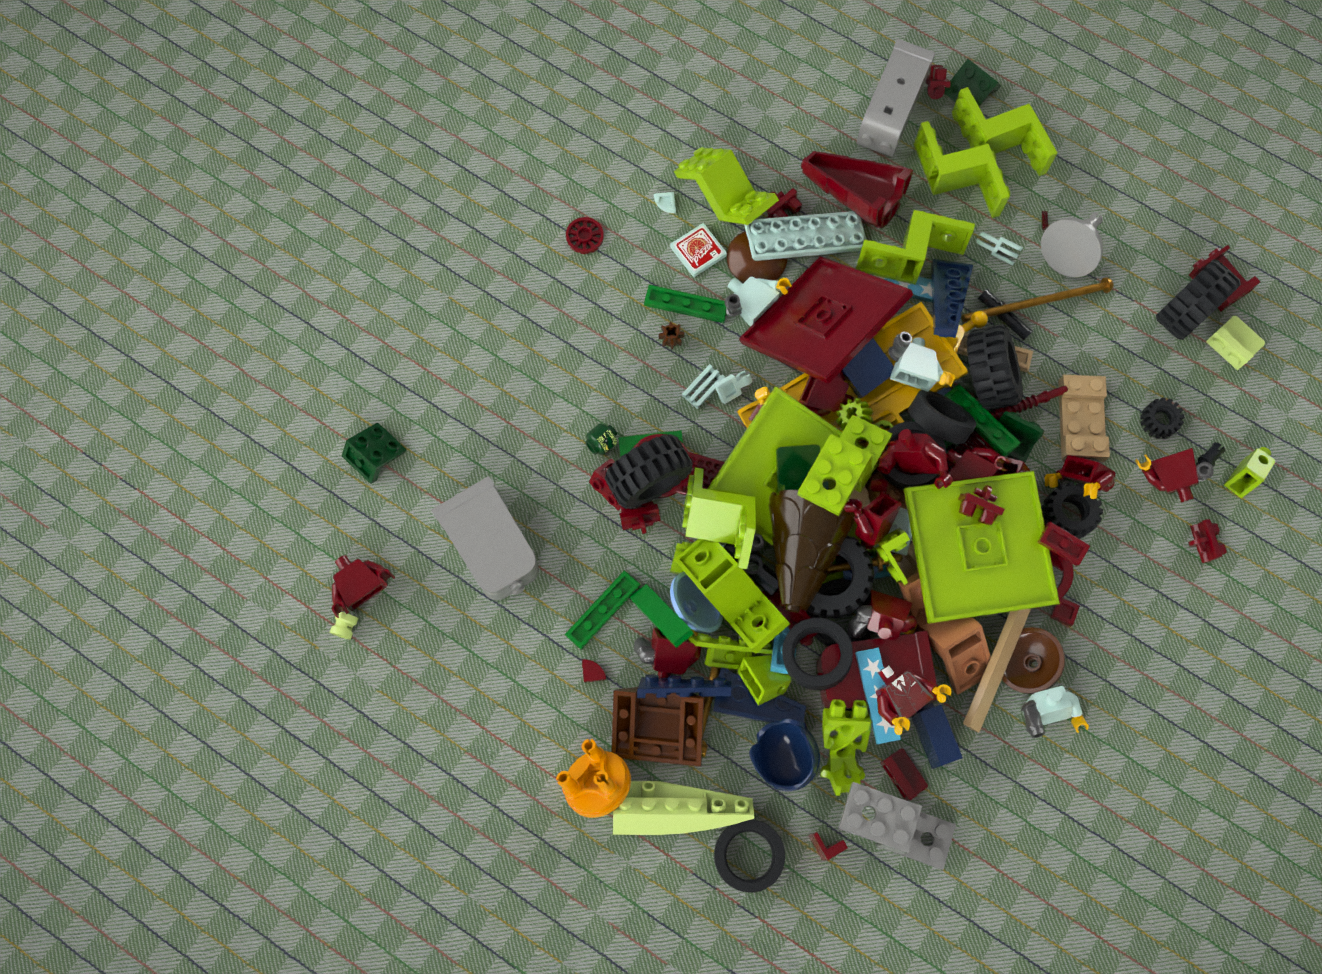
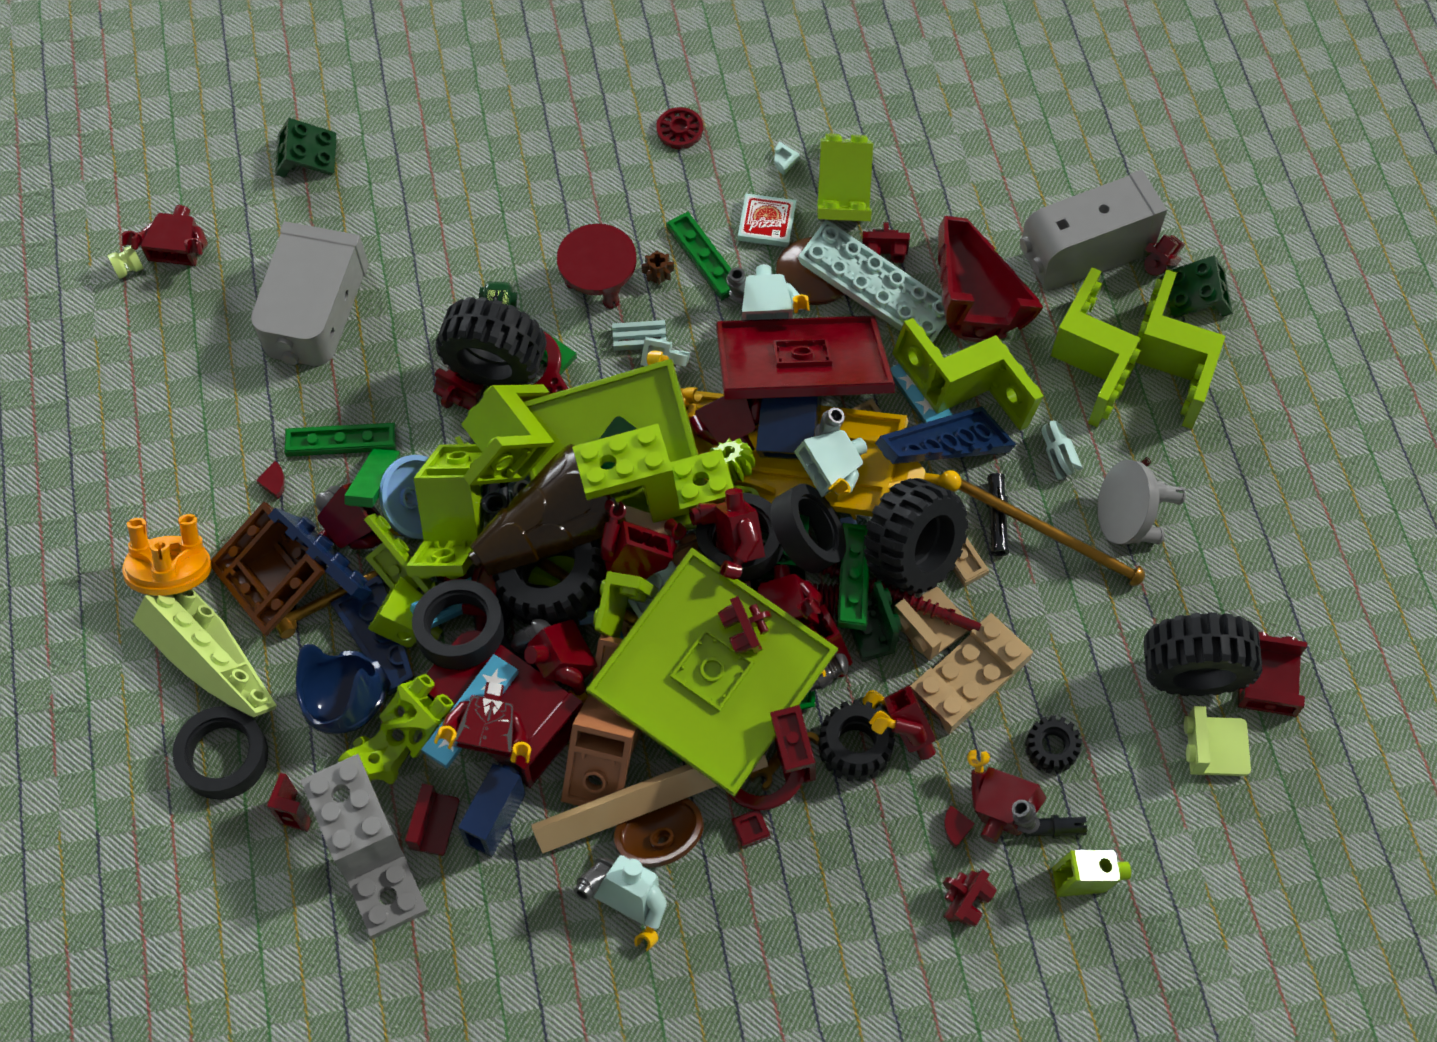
camera: 45 degrees right, 10 degrees down
(642, 362) = (597, 261): none -> dark red piece
(1044, 414) = (929, 634): none -> tan bracket
(1160, 508) = (956, 826): none -> dark red tile

